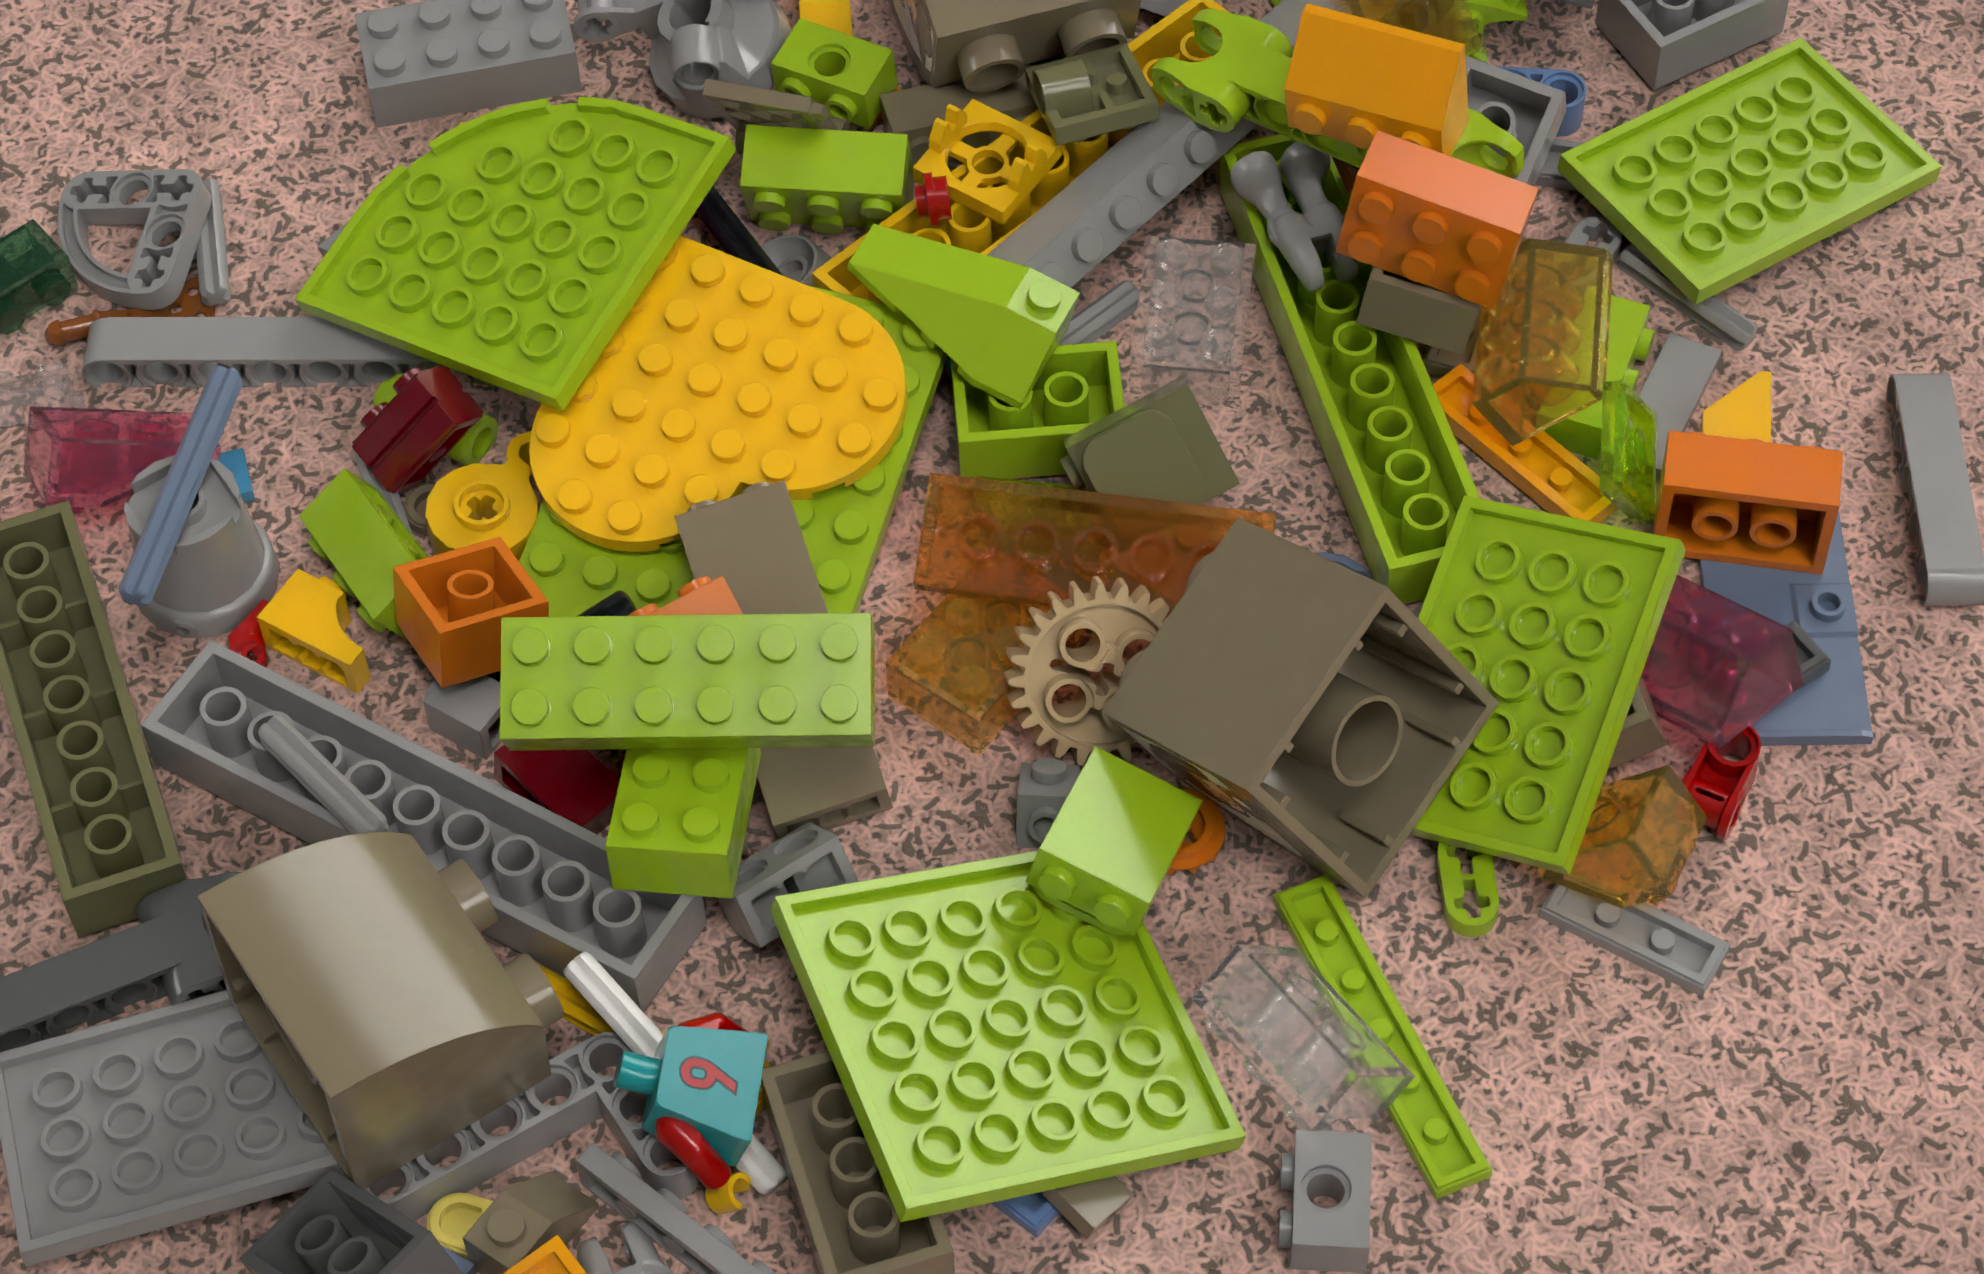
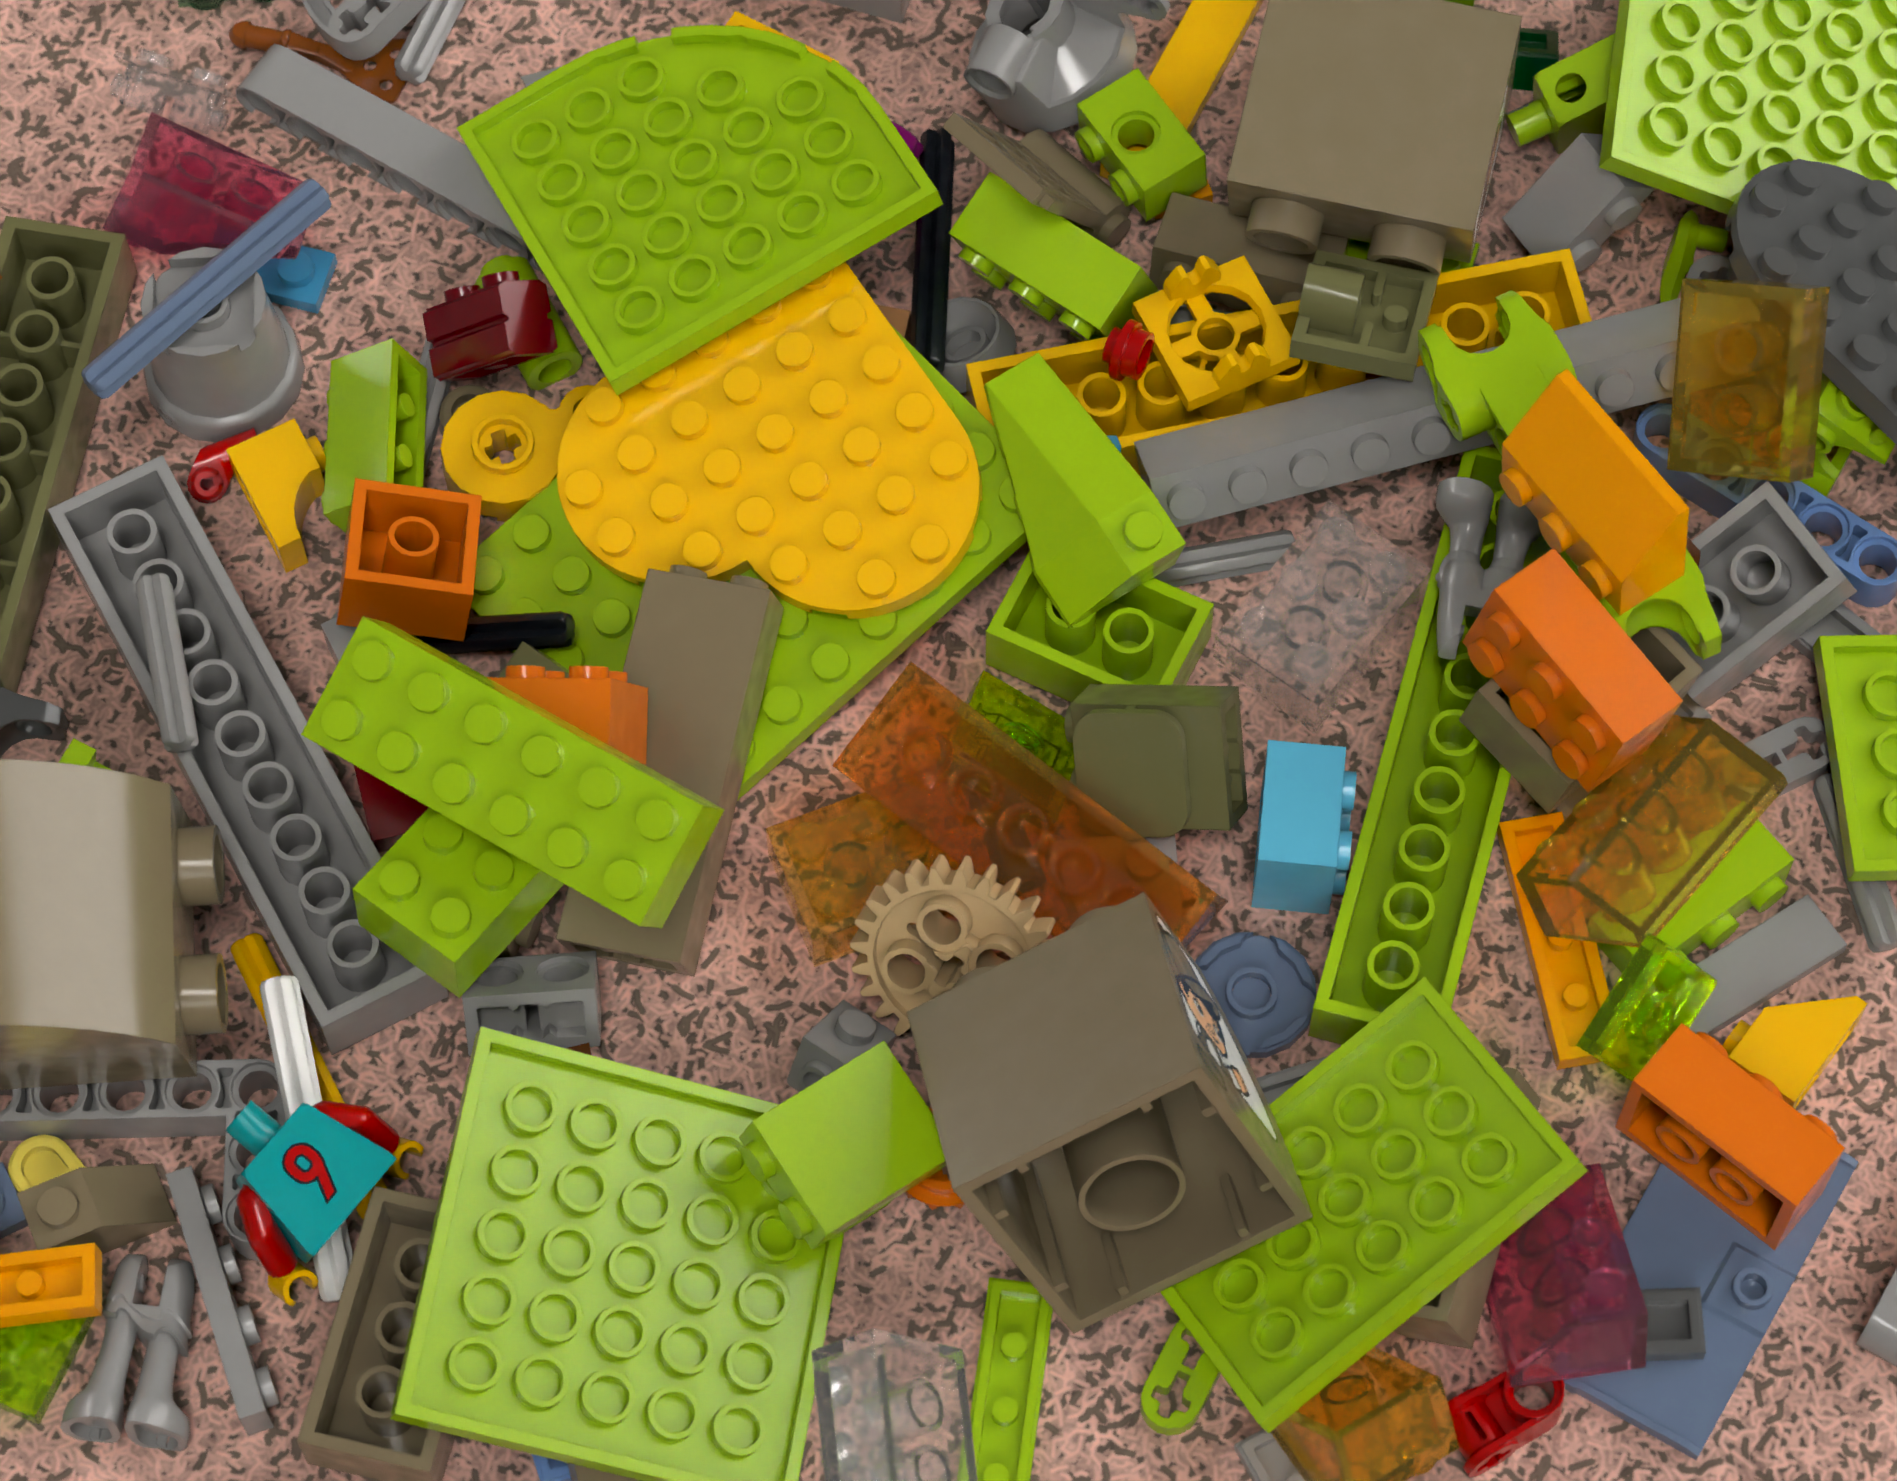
camera: 30 degrees right, 10 degrees up
(1286, 459) = (1303, 827): none -> medium azure brick

